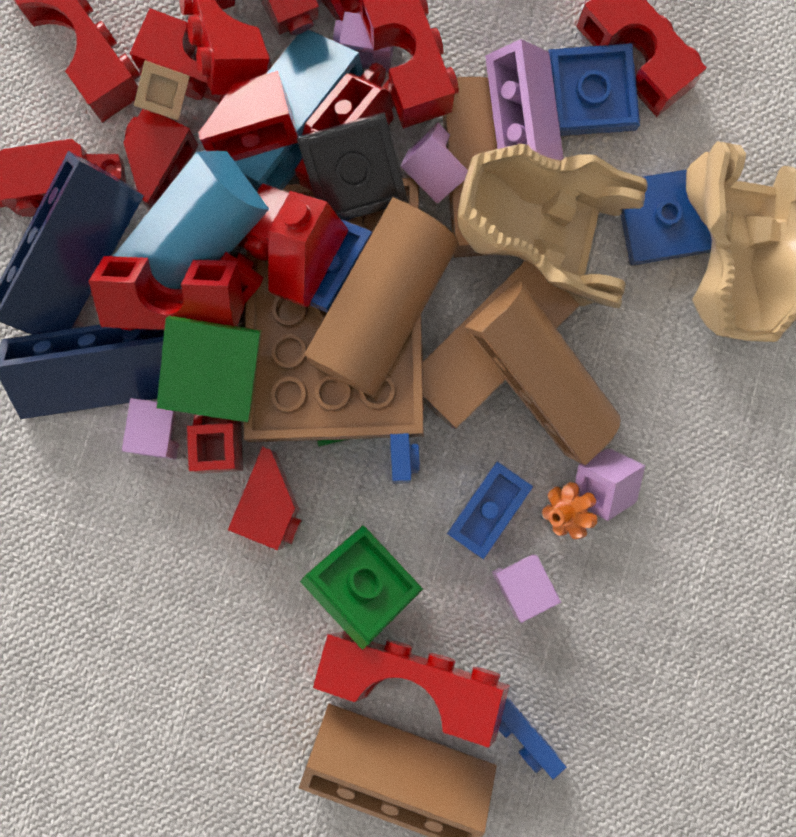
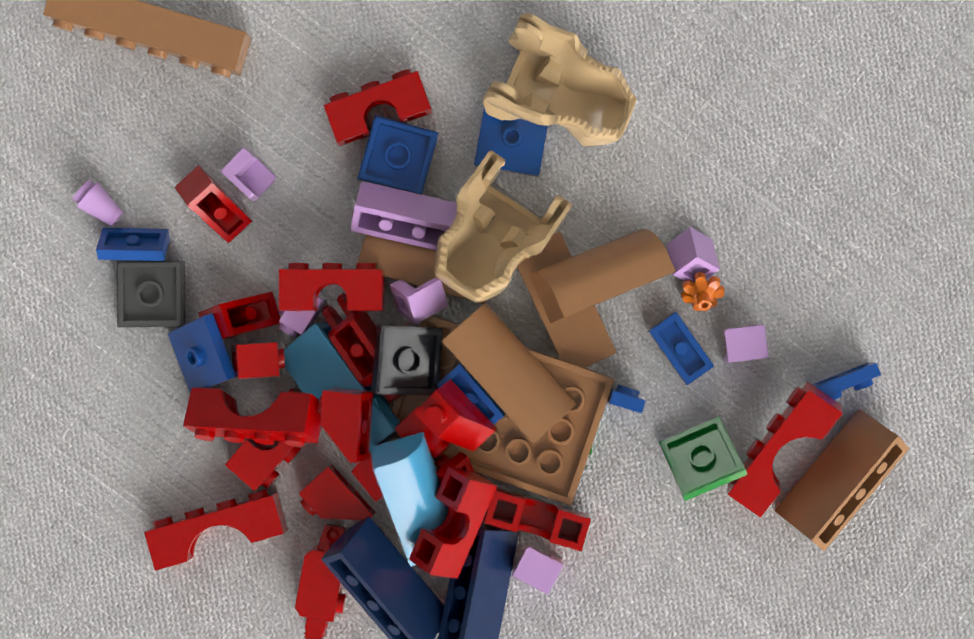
camera: 60 degrees left, 5 degrees up
(161, 90) = (296, 477): tan tile -> none
(208, 368) = (516, 512): green tile -> none
(267, 505) = (621, 504): red slope -> none

